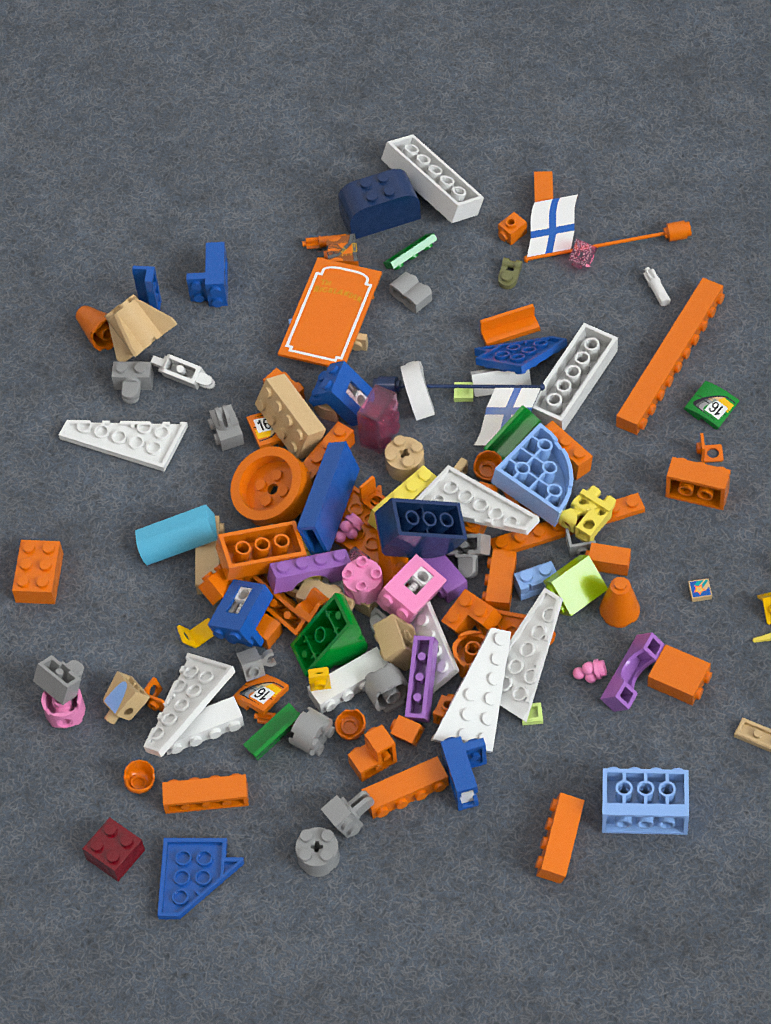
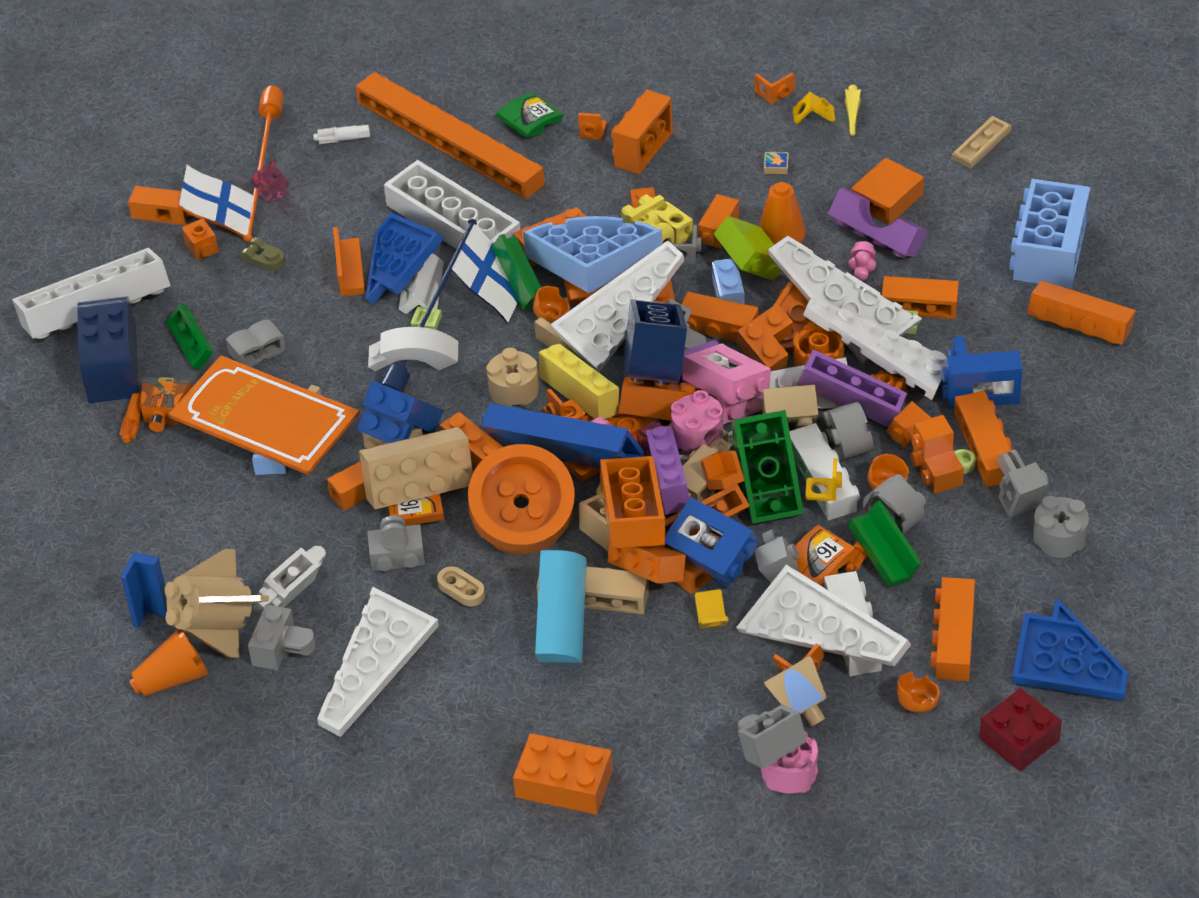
camera: 80 degrees left, 10 degrees down
(198, 476) = (465, 588): none -> tan plate
(213, 283) = (147, 524): blue brick -> none
(378, 419) = (456, 379): clear pink brick -> none
(382, 774) = (967, 460): none -> yellowish green tile
(556, 718) = (926, 296): none -> orange brick

